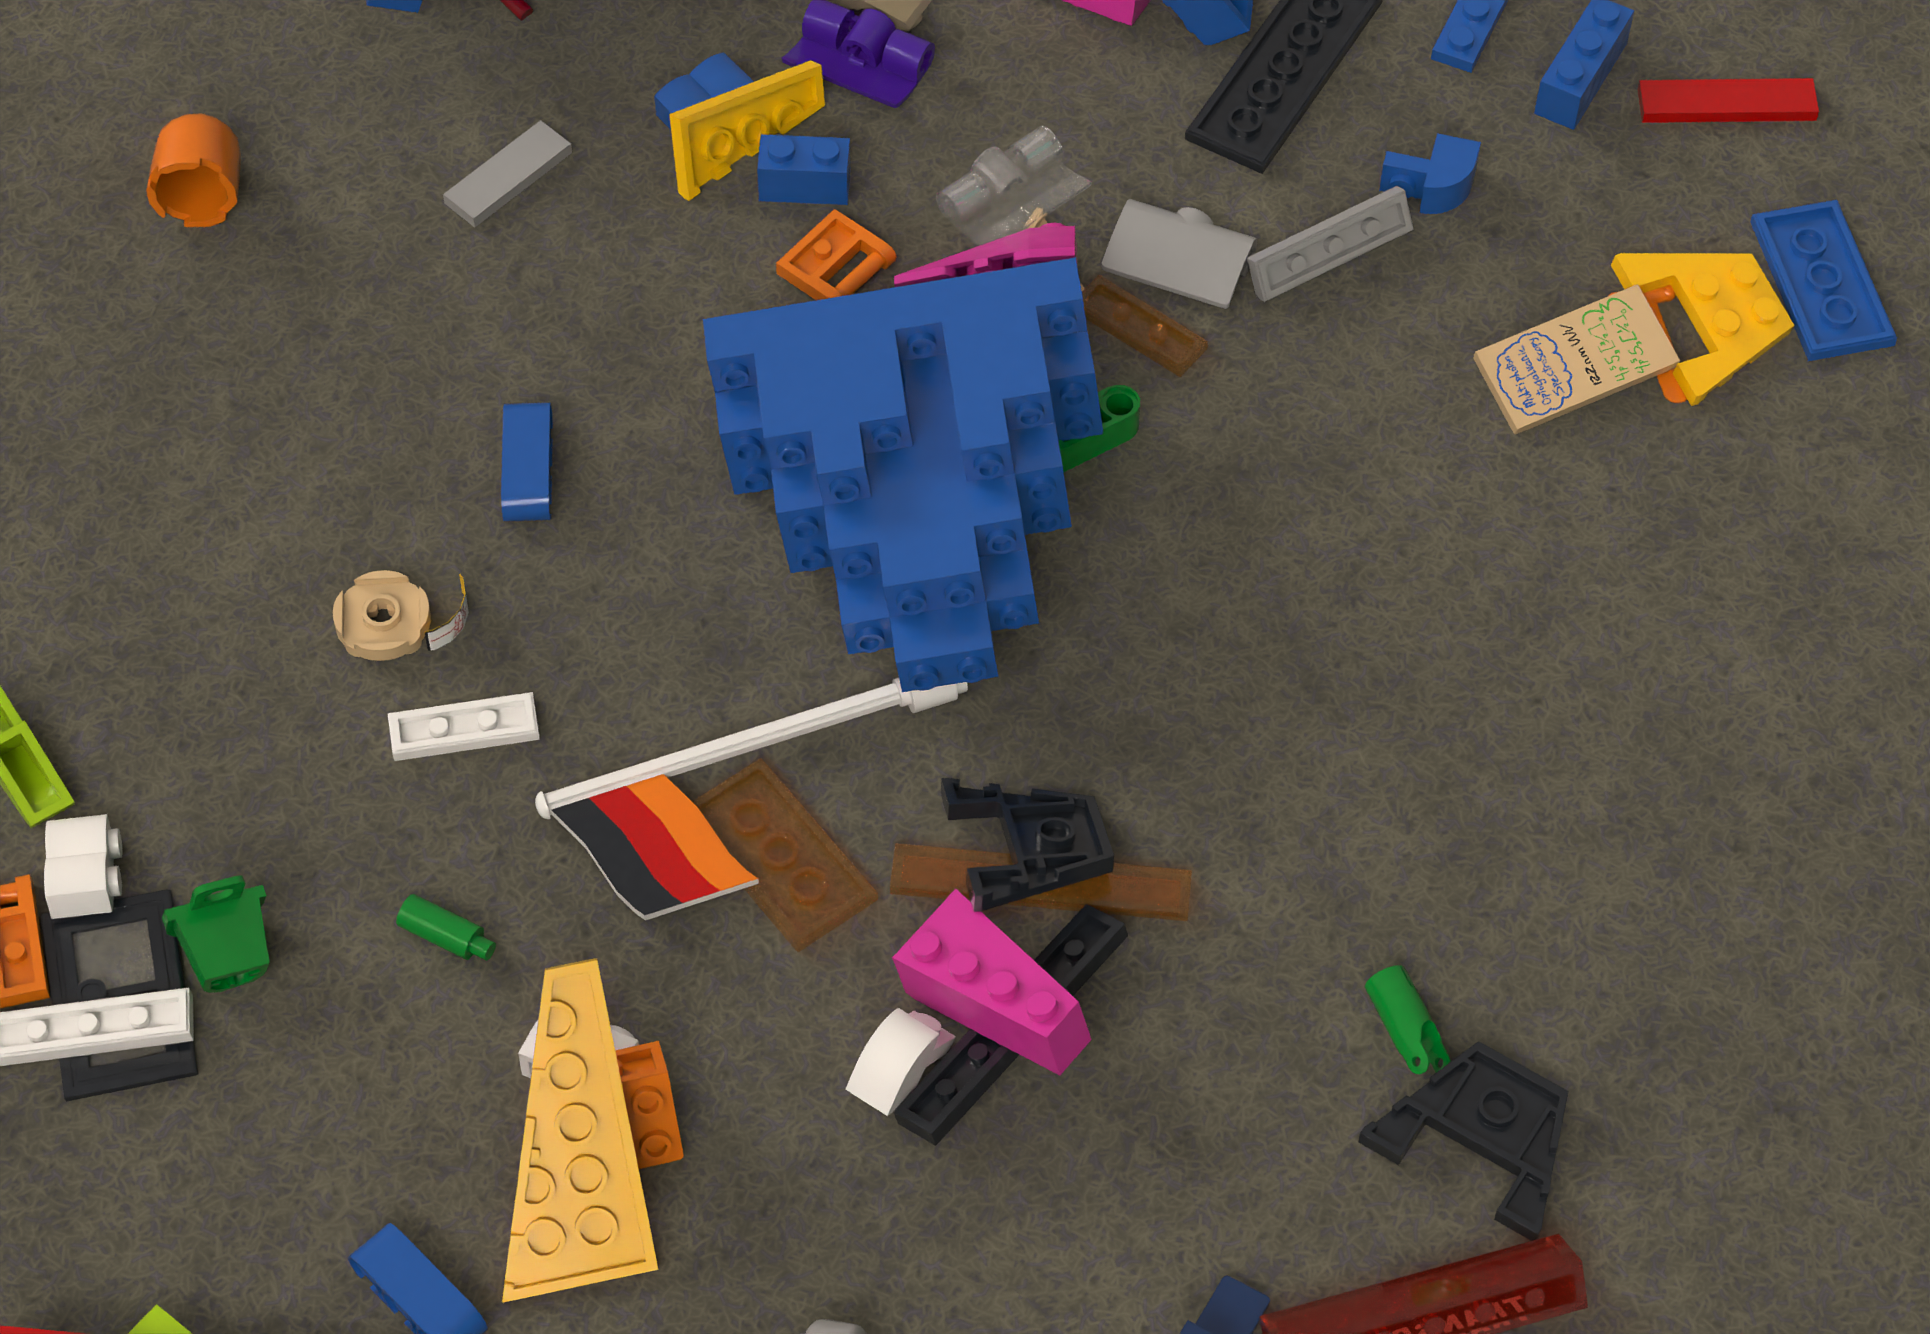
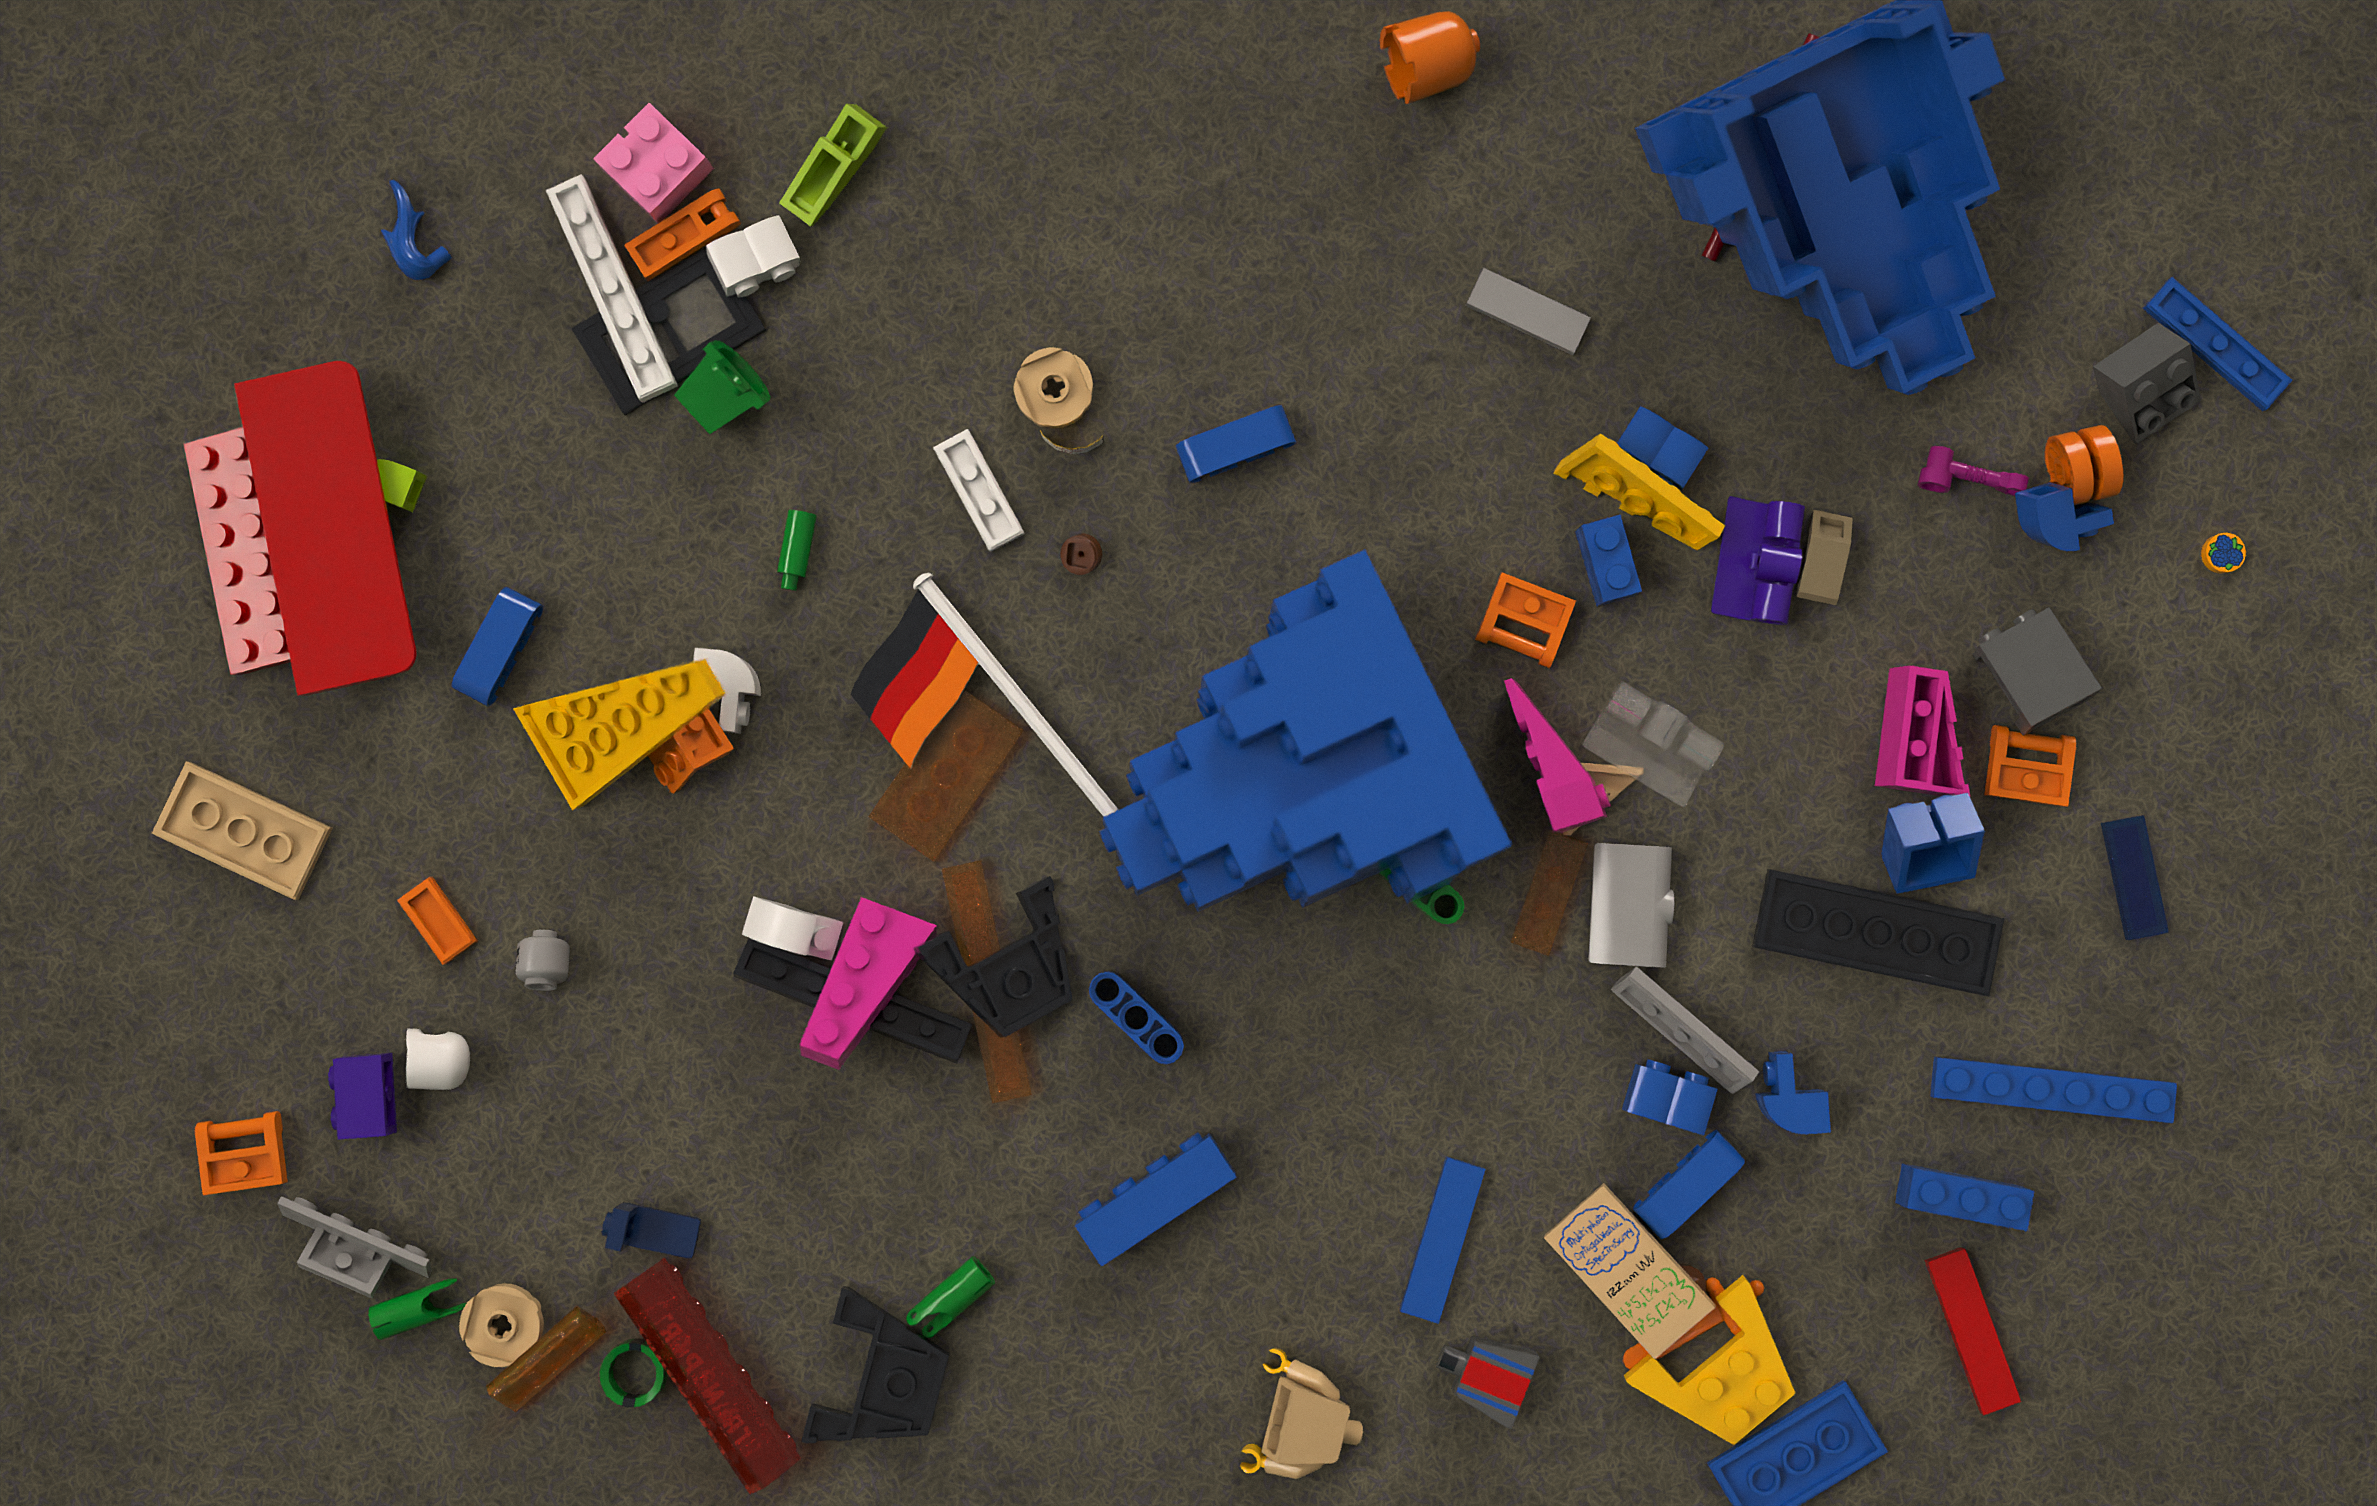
camera: 75 degrees right, 30 degrees up
(582, 643) = (1081, 554): none -> reddish brown tile
(1148, 718) = (1145, 1035): none -> blue beam
(1355, 777) = (1154, 1199): none -> blue brick
(1399, 276) = (1670, 1098): none -> blue brick
(1491, 524) = (1442, 1239): none -> blue tile
(1498, 282) = (1690, 1186): none -> blue beam
(1659, 514) = (1490, 1376): none -> torso
(1662, 697) = (1304, 1423): none -> tan torso

